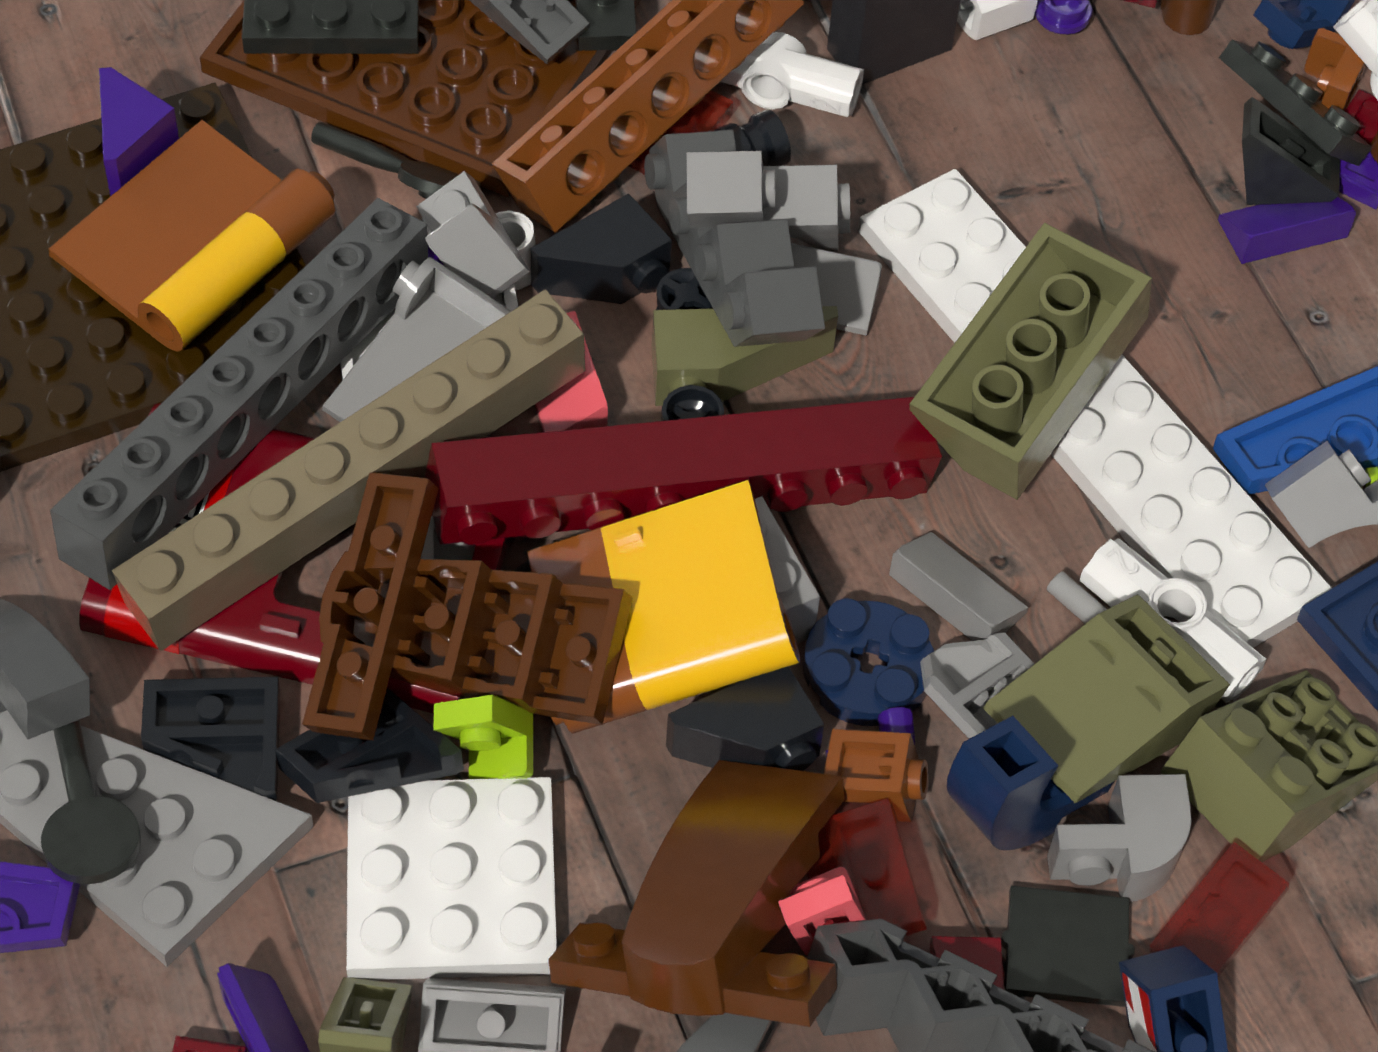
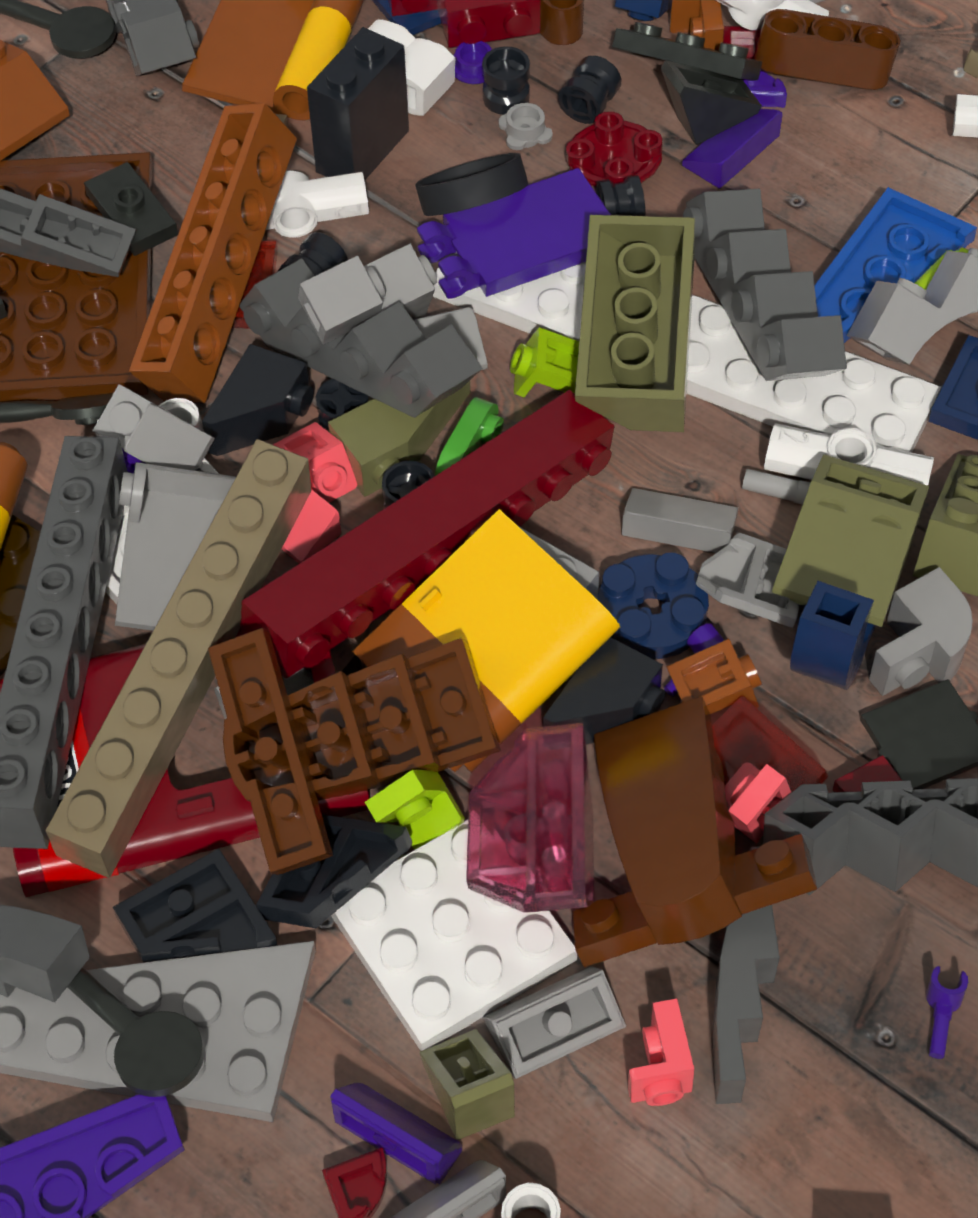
camera: 25 degrees left, 0 degrees up
(591, 818) = (535, 824): none -> clear pink wedge
(623, 348) = (328, 461): none -> coral bracket
(804, 386) = (475, 428): none -> bright green plate
(916, 352) = (545, 360): none -> lime bracket
(964, 135) = (471, 184): none -> black tyre
(970, 207) = (514, 236): none -> dark purple tile
(1072, 101) = (525, 126): none -> light grey plate
(1082, 42) = (505, 78): none -> black wheel
(1117, 227) = (623, 197): none -> black wheel
(1148, 172) = (615, 150): none -> dark red dish
(1161, 94) = (586, 95): none -> black wheel
(1193, 386) = (759, 292): none -> dark grey brick

